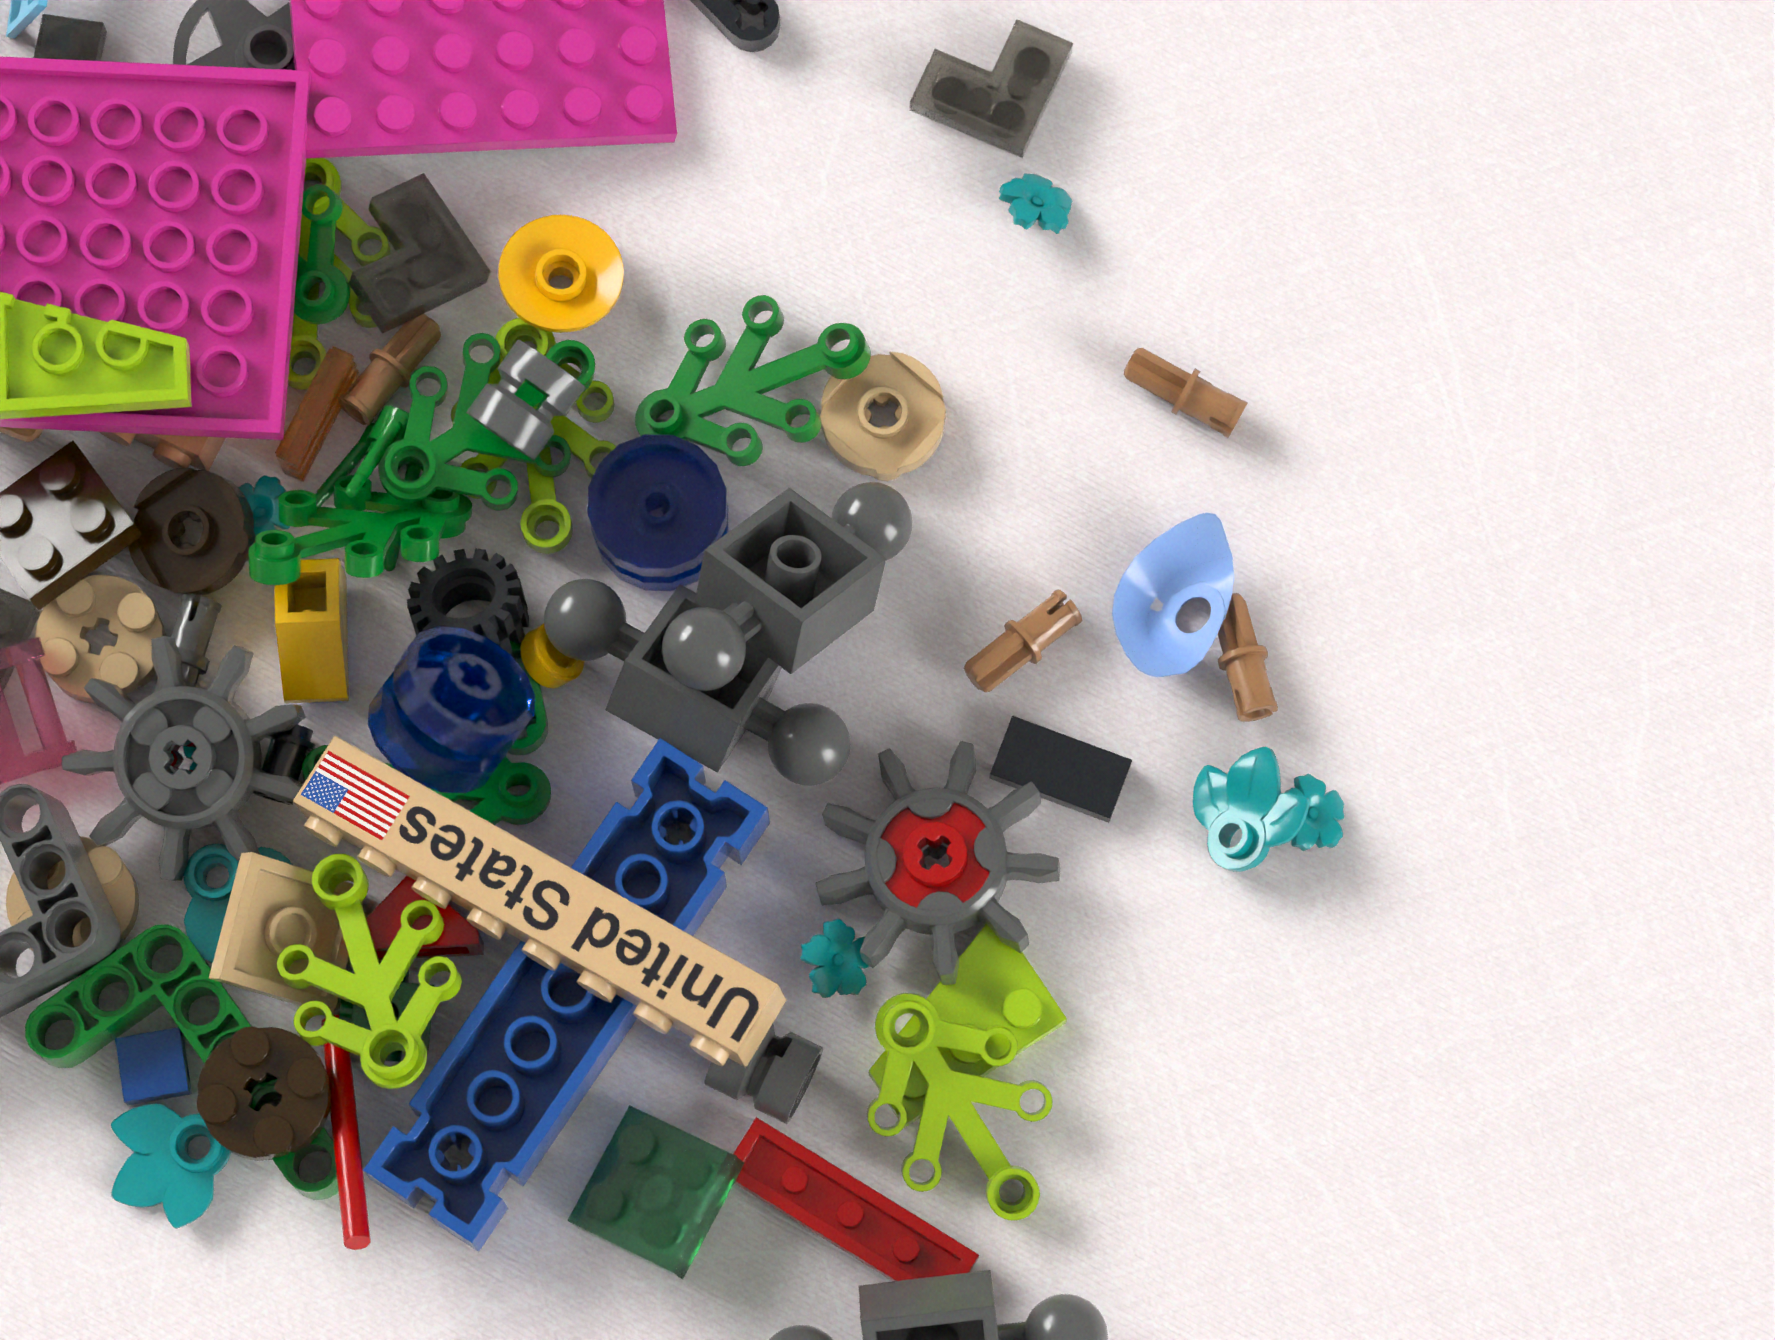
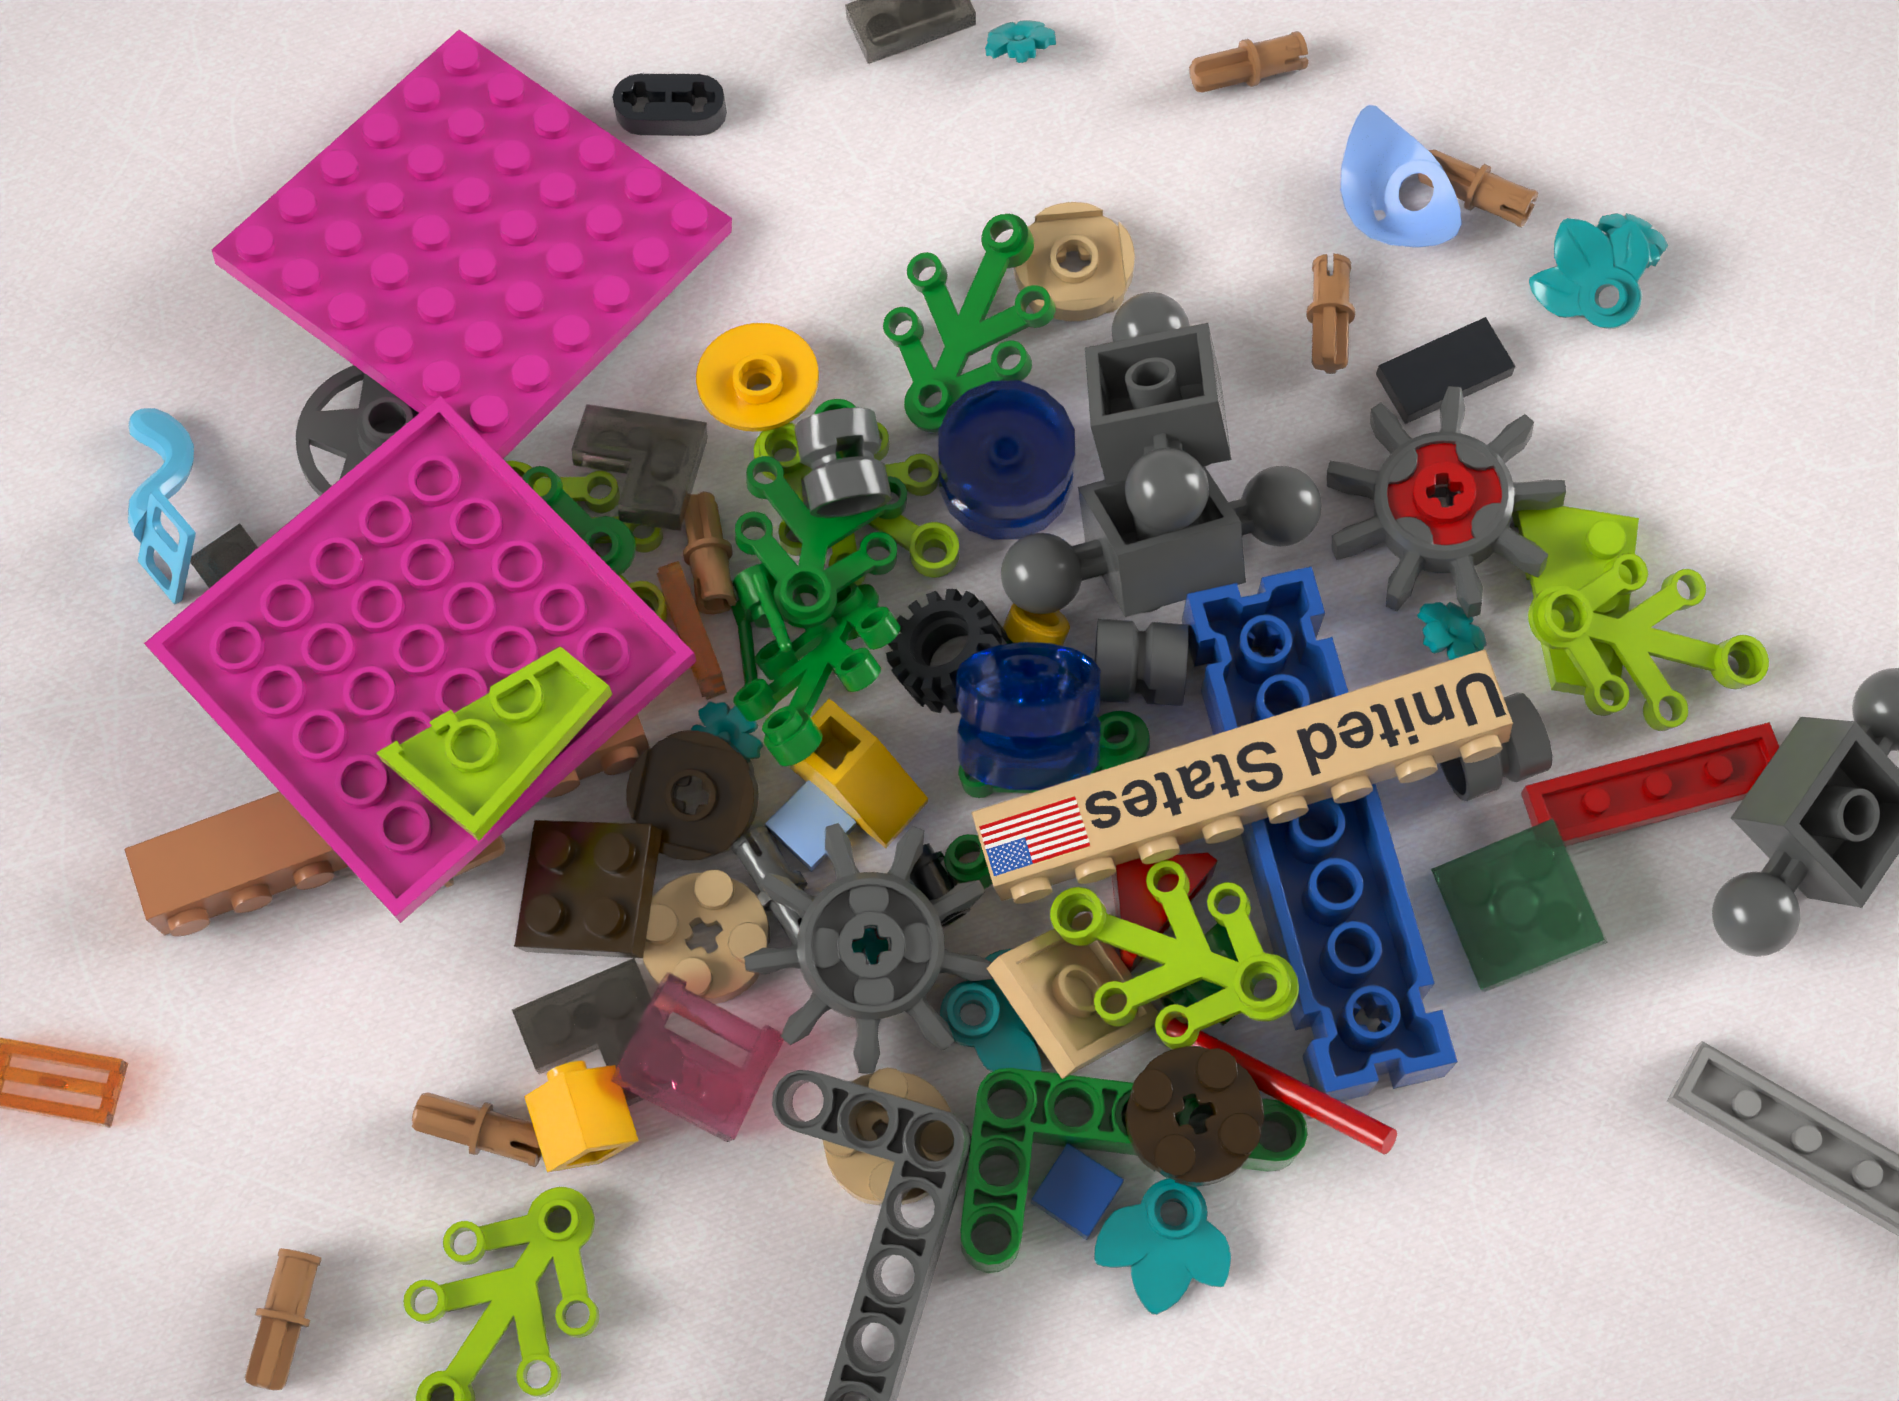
camera: 45 degrees left, 5 degrees down
(252, 627) = (803, 821): none -> light blue tile
(586, 747) = (1142, 661): none -> dark grey wheel

